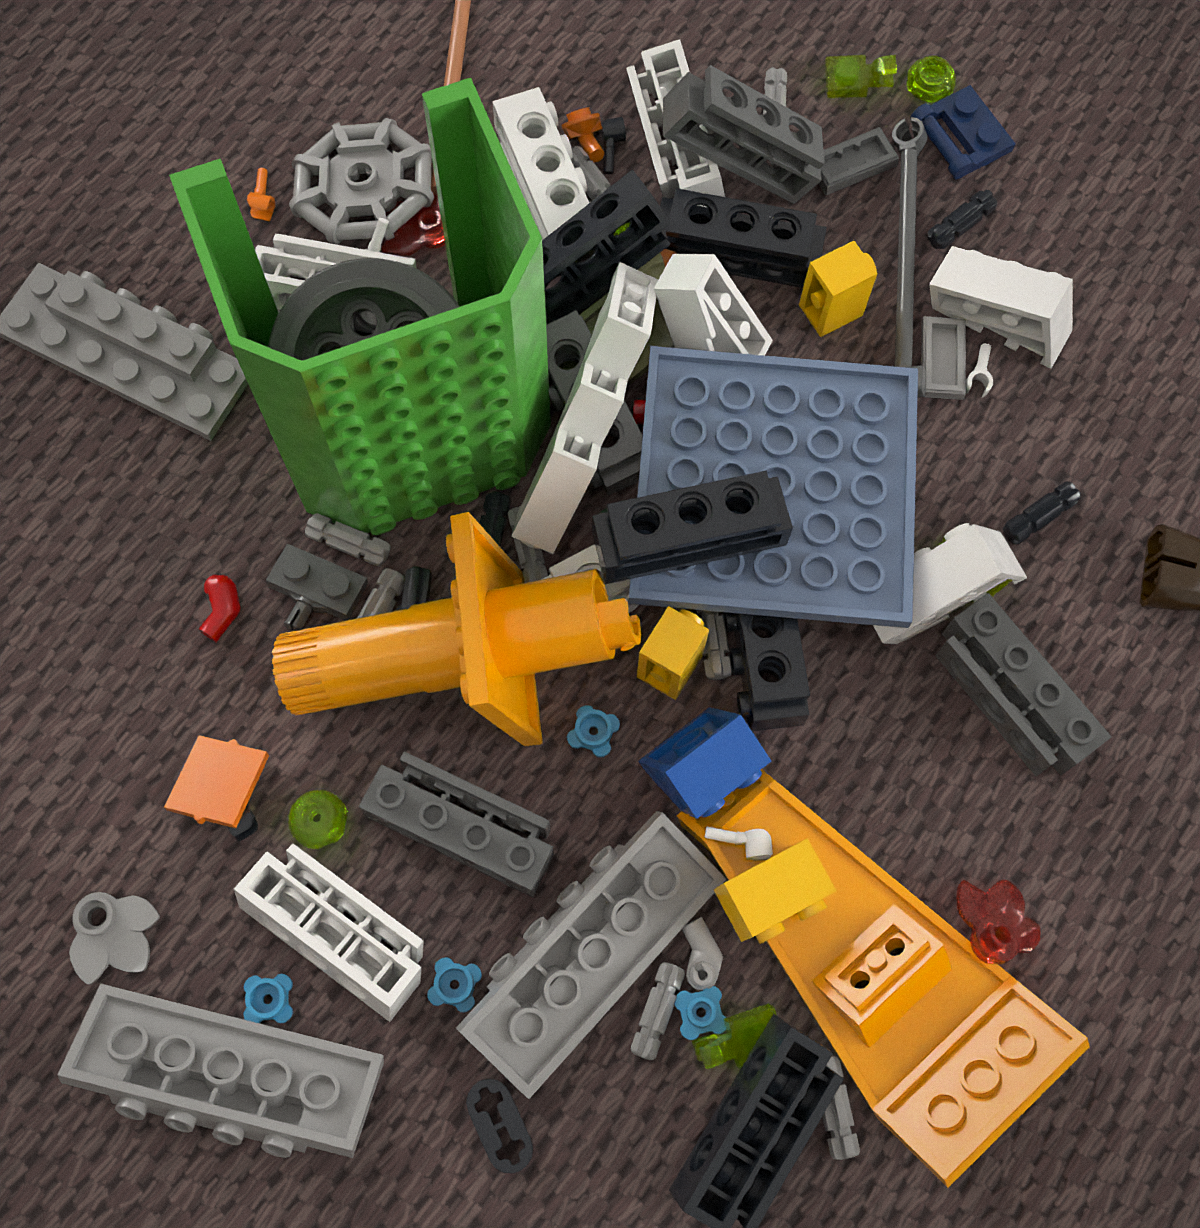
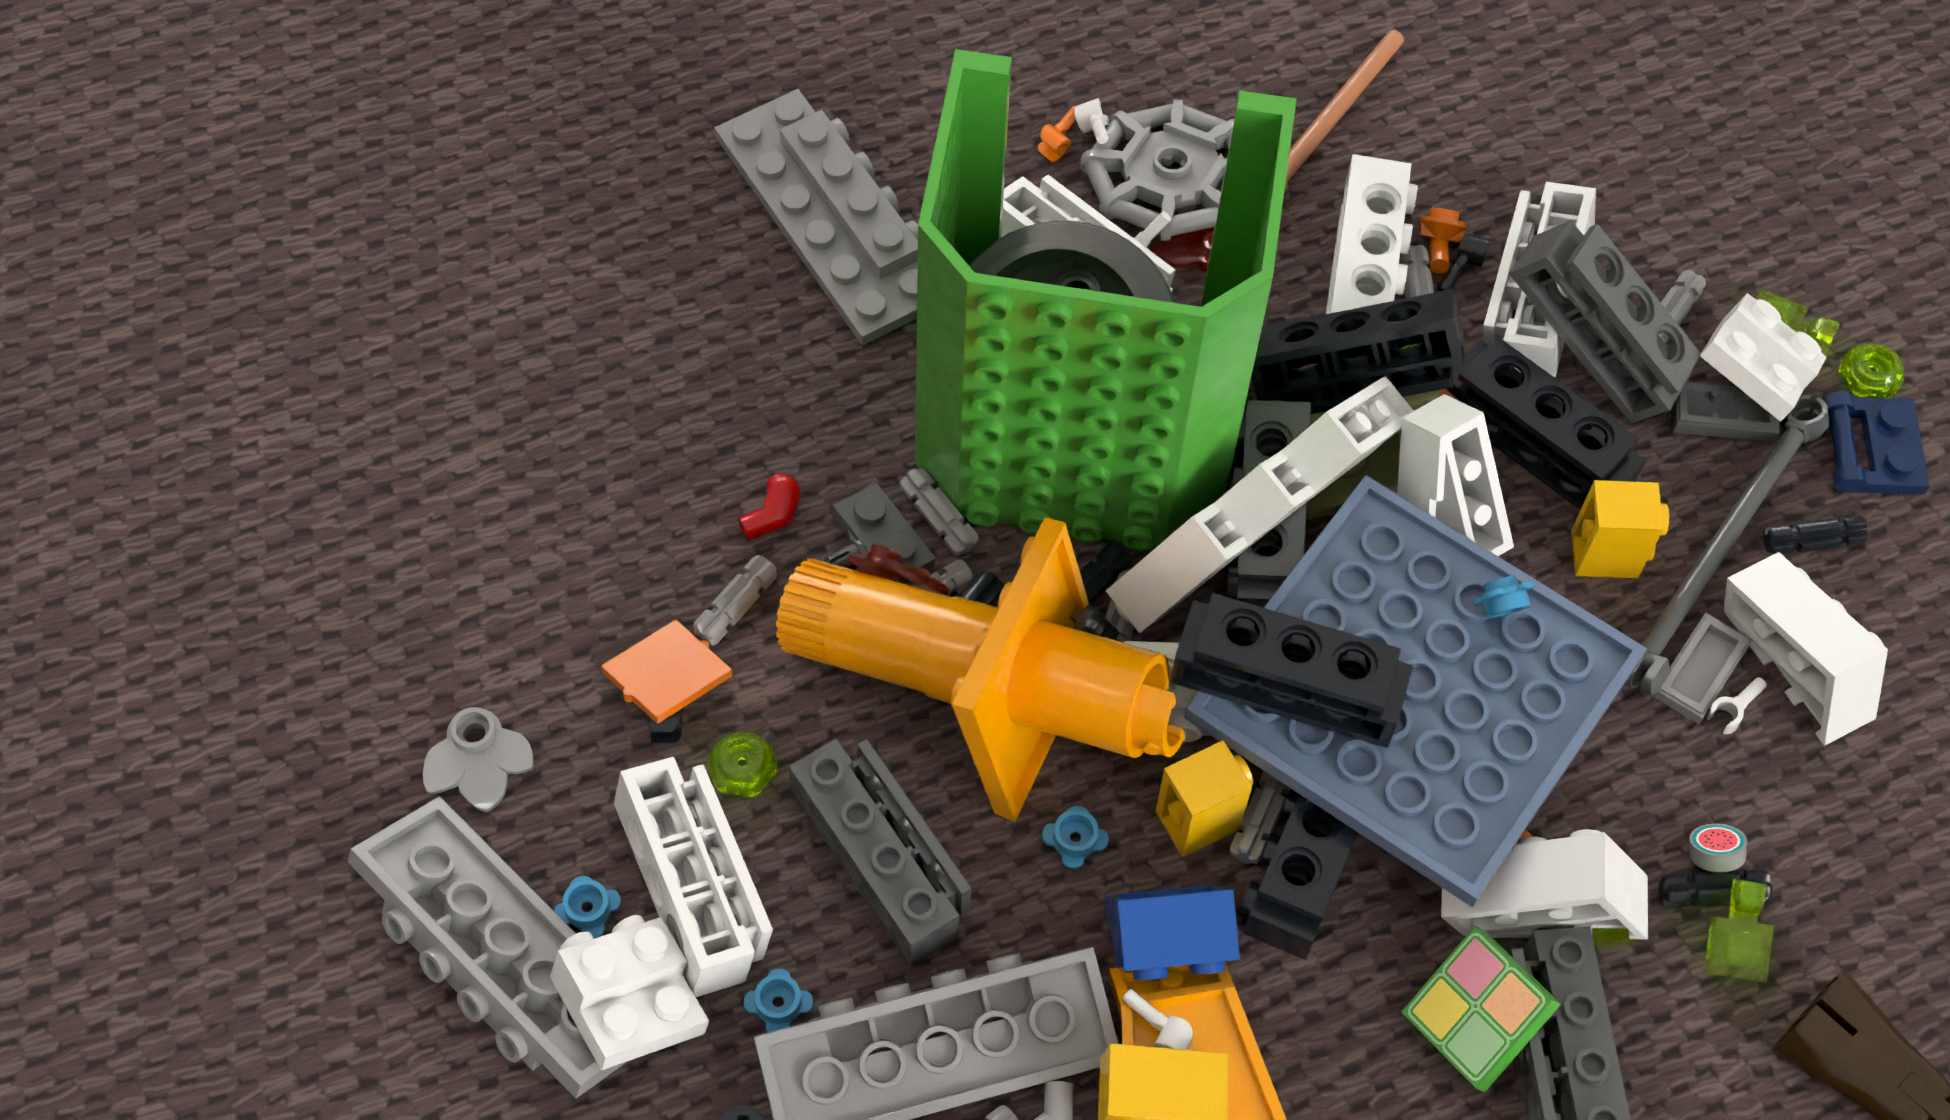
camera: 30 degrees right, 10 degrees down
(235, 694) = (735, 600): none -> light grey axle
(277, 171) = (1090, 118): none -> white hand
(334, 607) = (886, 564): none -> clear red plate
(341, 1051) = (627, 990): none -> white plate
(523, 571) = (1093, 622): none -> black axle
(804, 386) = (1504, 596): none -> dark azure plate
(860, 105) = (1764, 355): none -> white plate
(949, 695) = (1480, 1008): none -> tile
(1028, 482) = (1717, 847): none -> tile
(1082, 541) = (1738, 943): none -> clear neon green plate

